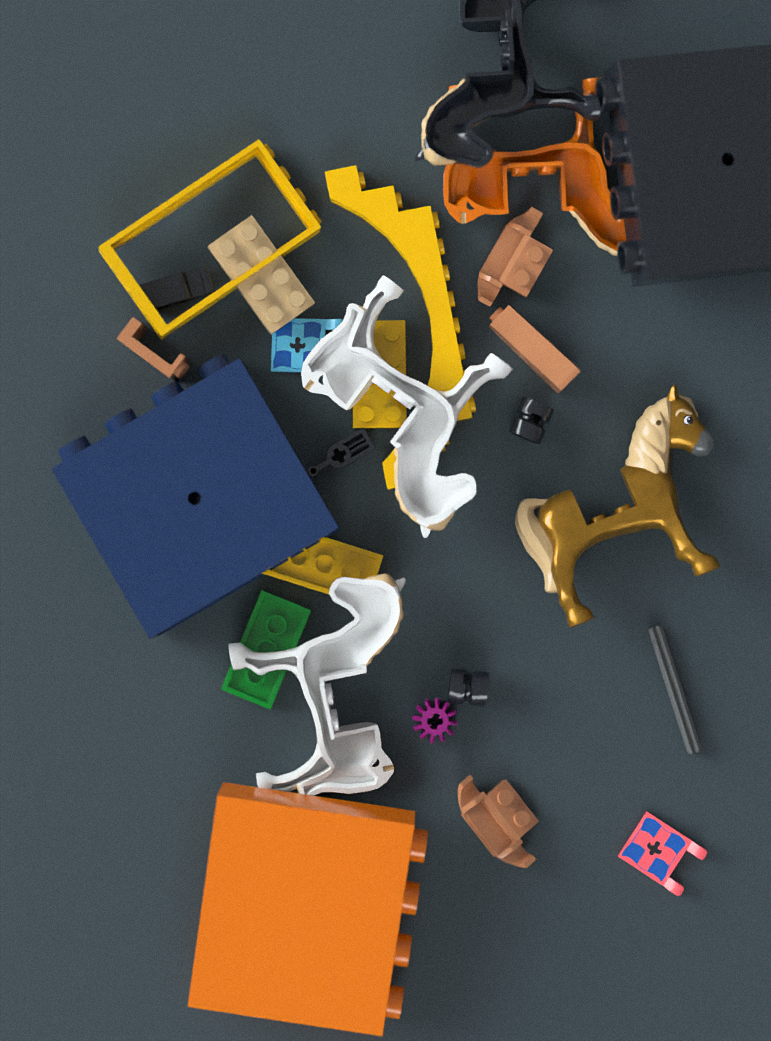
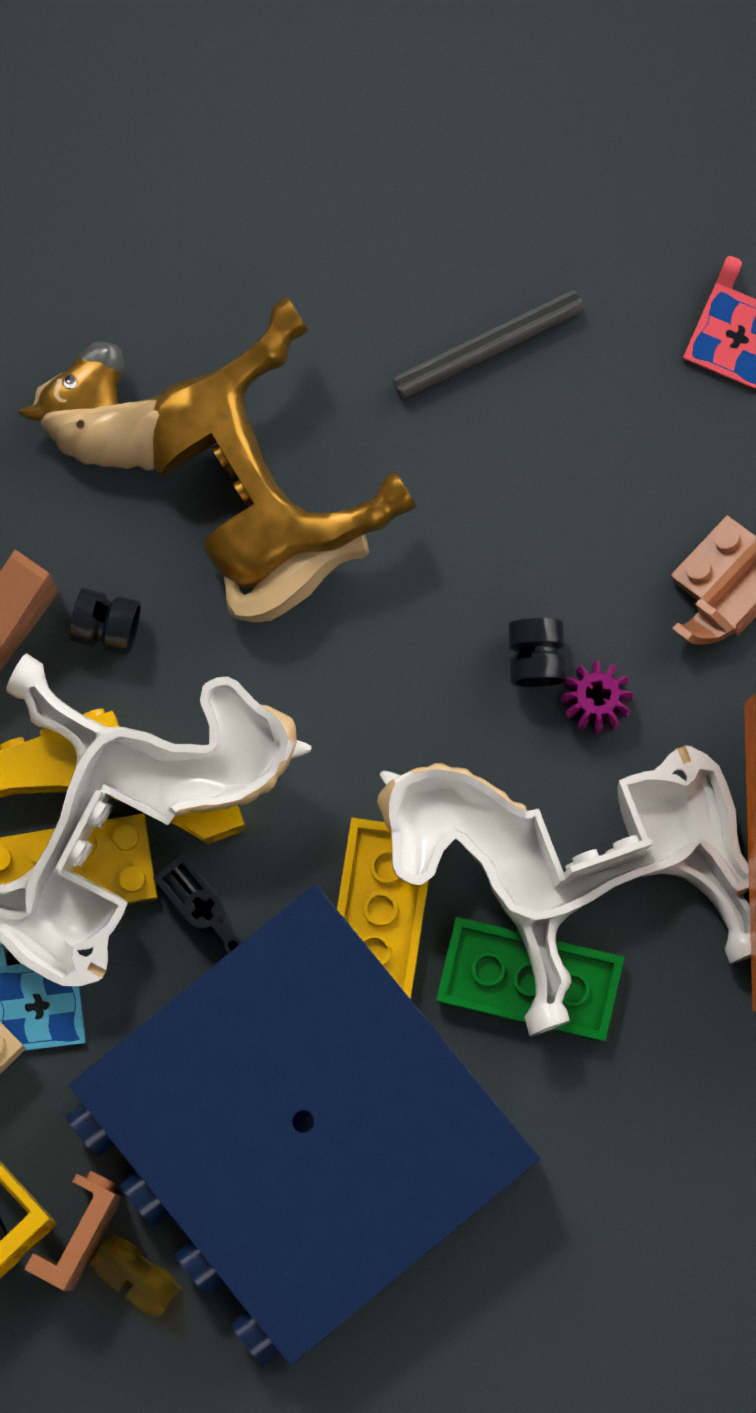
camera: 100 degrees left, 10 degrees down
(134, 375) = (152, 1285): none -> clear yellow hinge

